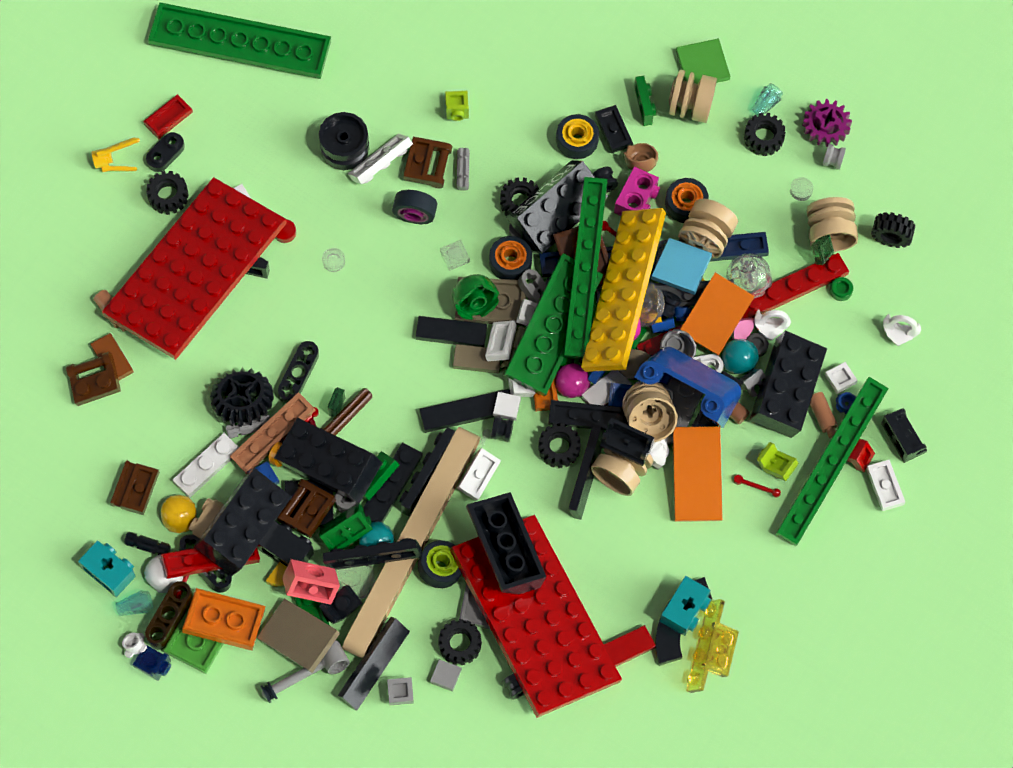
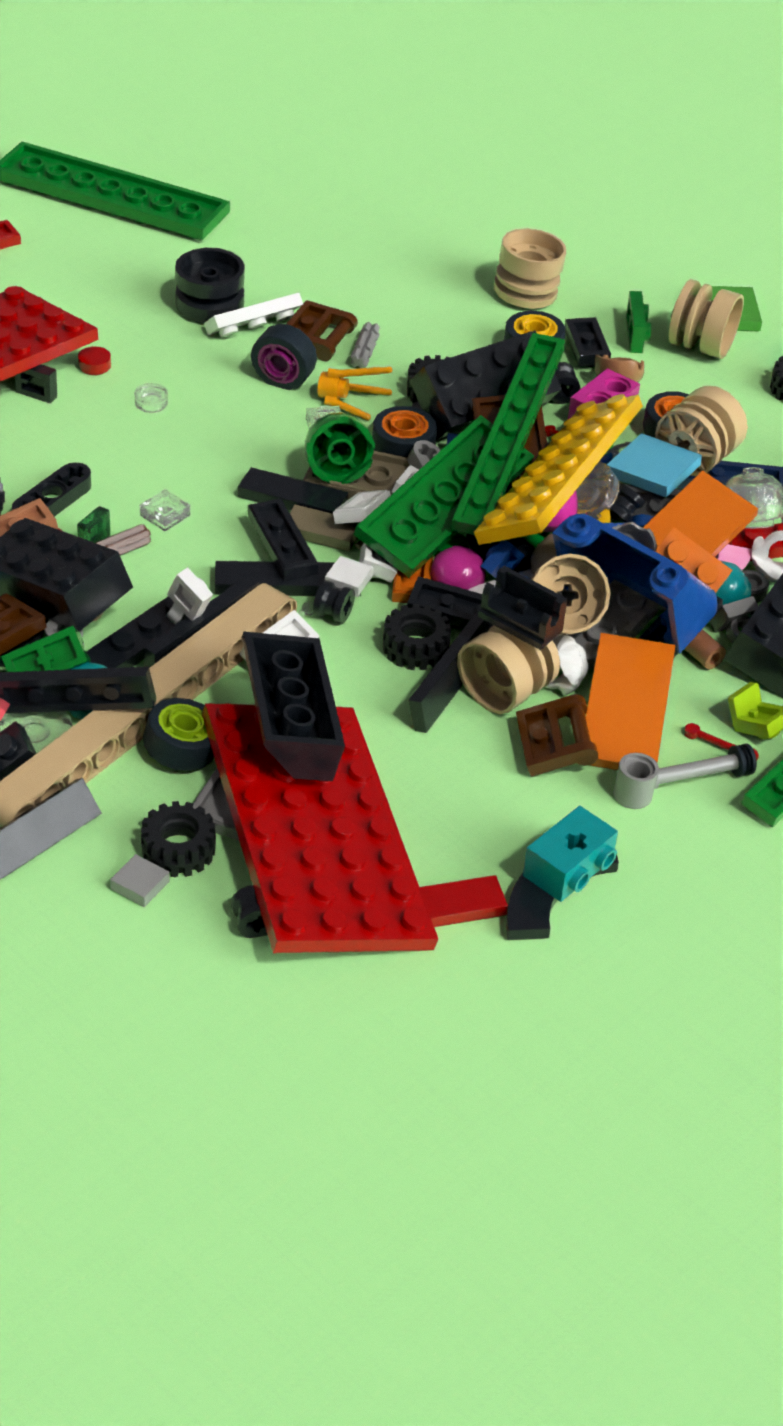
camera: 10 degrees right, 25 degrees down
(375, 370) = (165, 510): none -> clear plate
(388, 466) = (130, 609): green plate -> none
(400, 691) = (53, 879): light grey tile -> none
(419, 463) = (189, 597): none -> white plate
(454, 220) = (334, 386): none -> light orange plant
(457, 105) = (376, 286): lime bracket -> none
(457, 381) = (282, 539): none -> black tile
(561, 68) = (529, 268): none -> tan wheel
(652, 512) = (543, 736): none -> reddish brown plate
(713, 649) = (608, 929): clear yellow bracket -> none
(719, 355) = (694, 559): none -> orange plate
(770, 502) = (640, 773): none -> light grey piece

